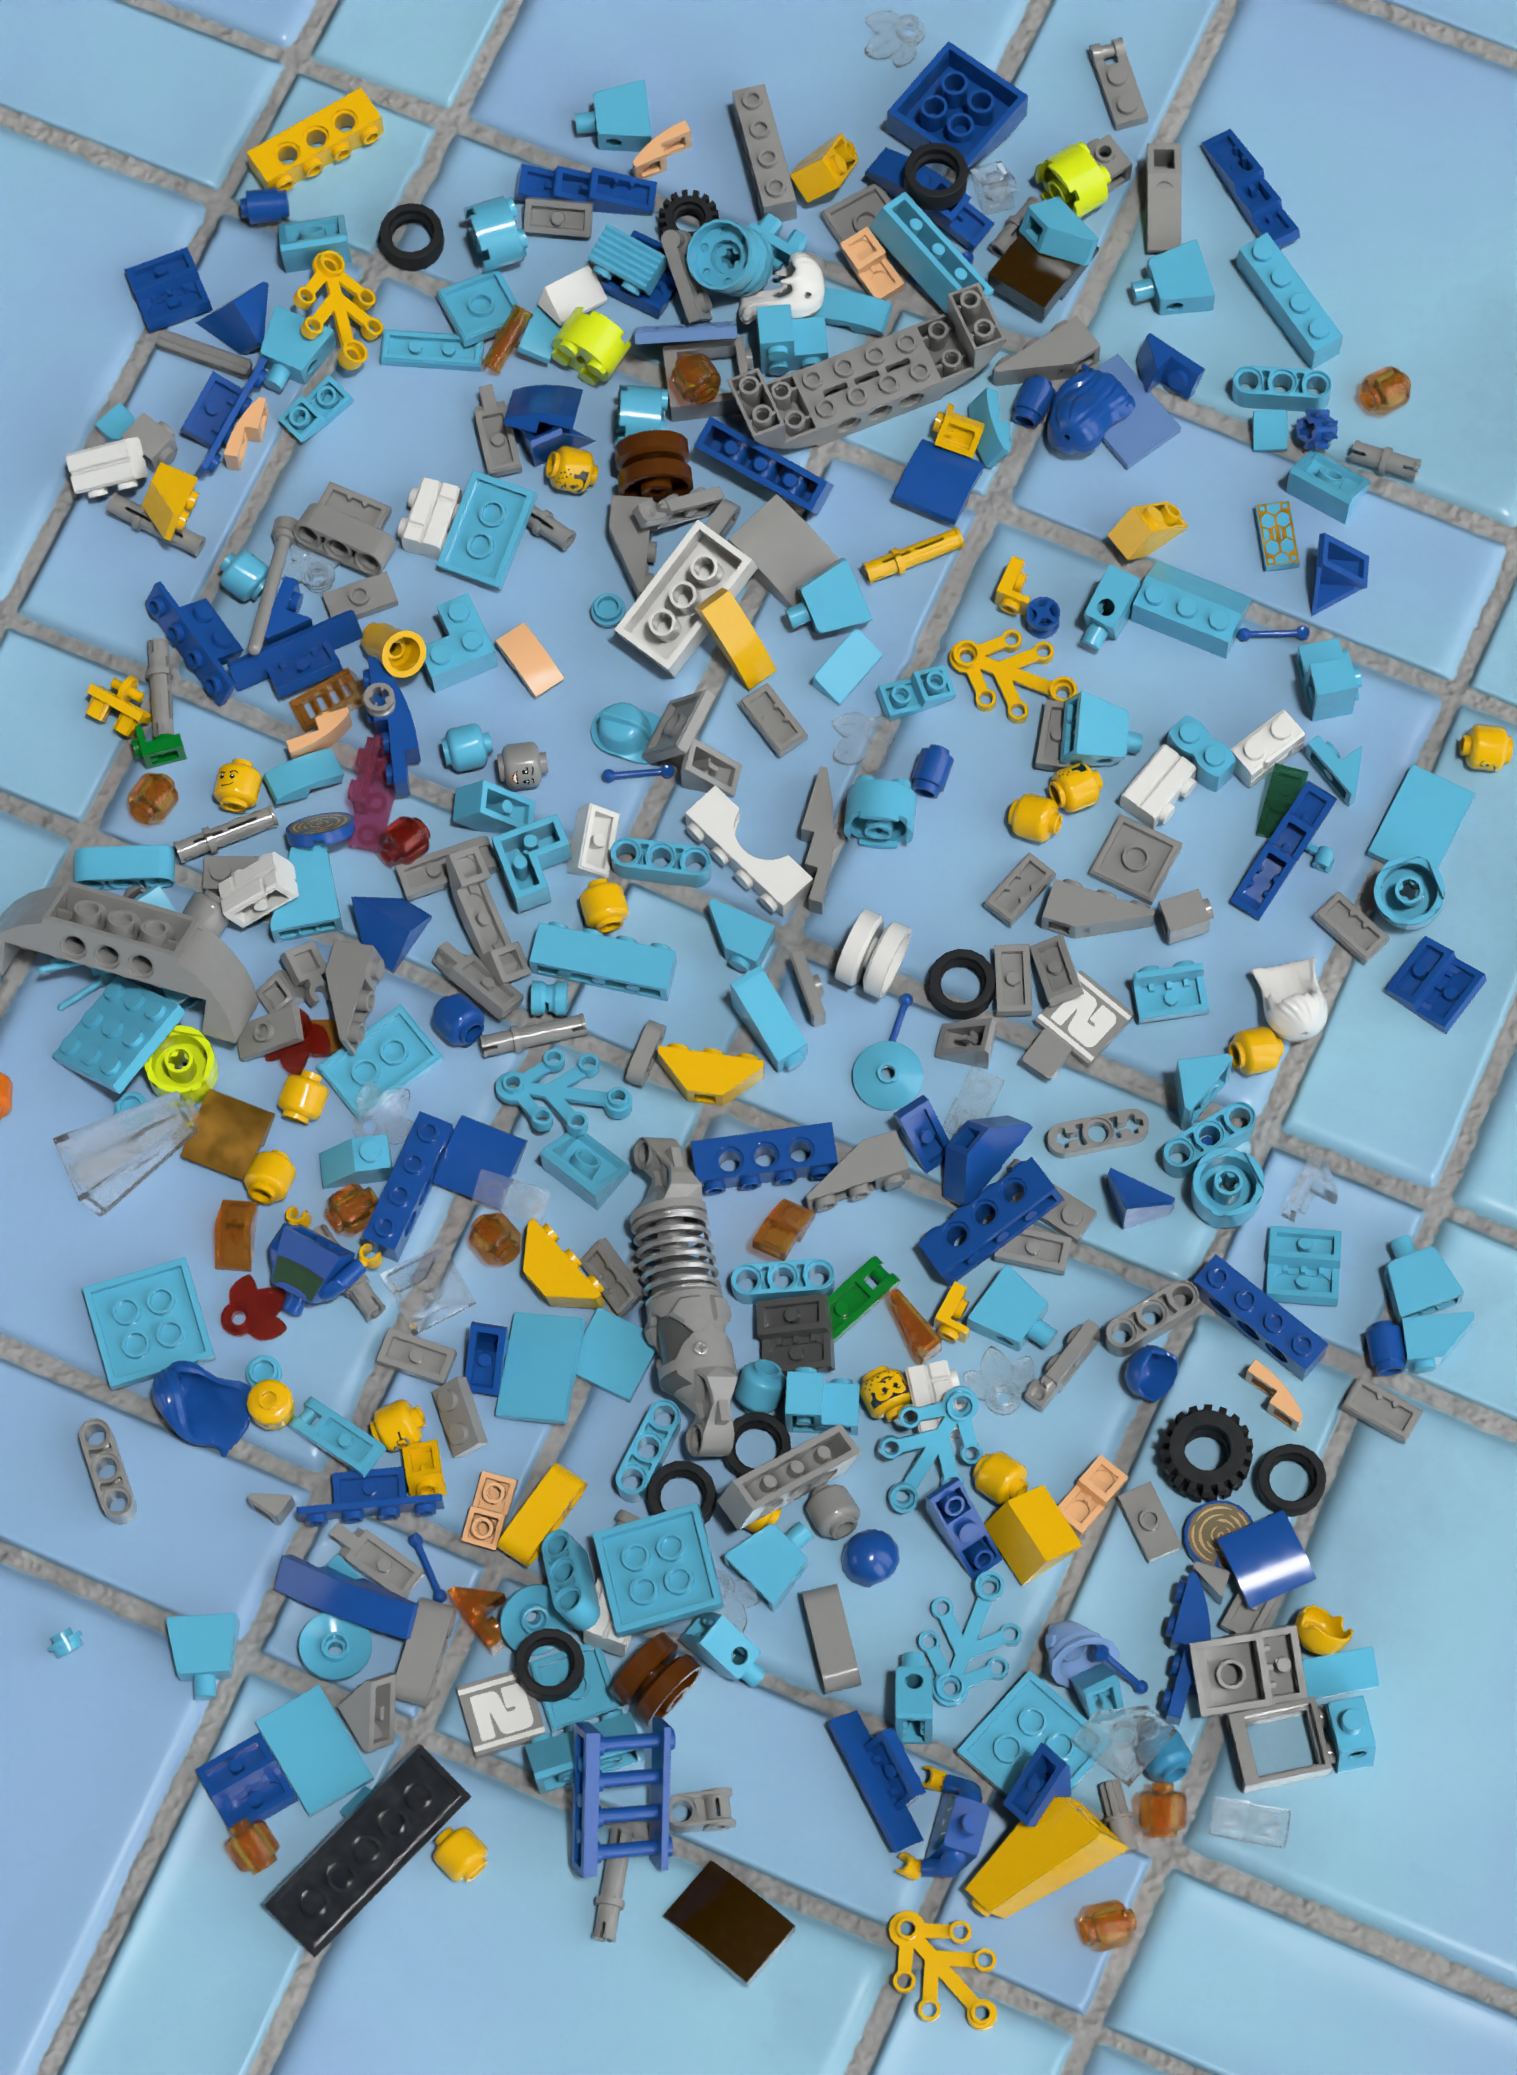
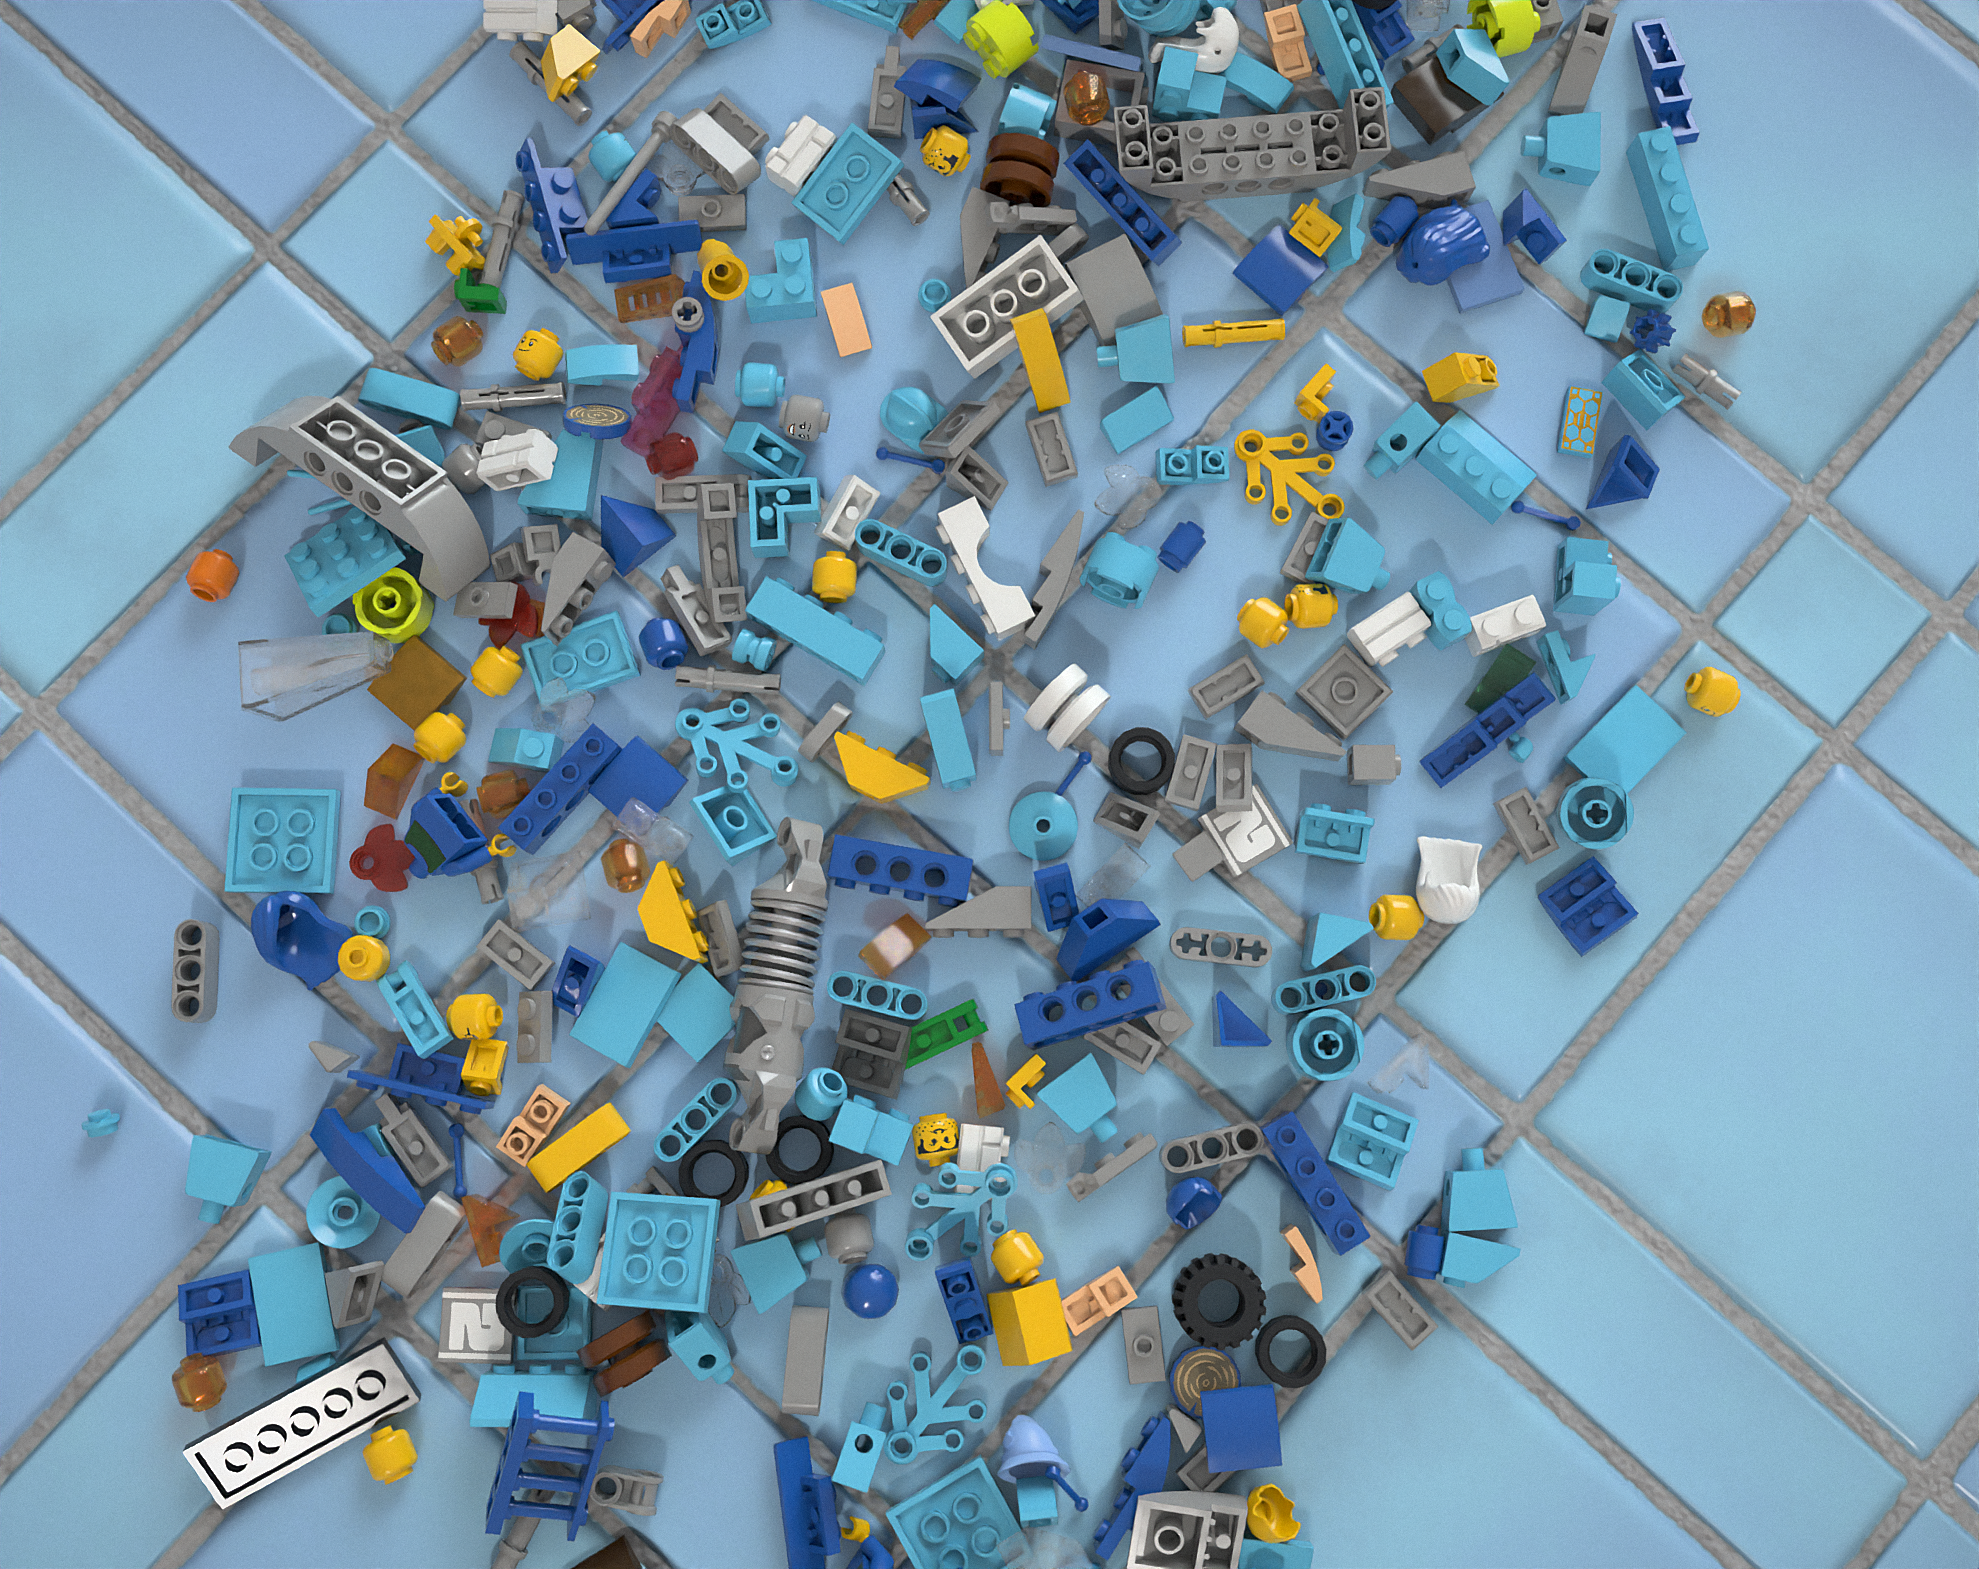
camera: 15 degrees right, 10 degrees up
(329, 730) = (639, 329): light nougat slope -> none

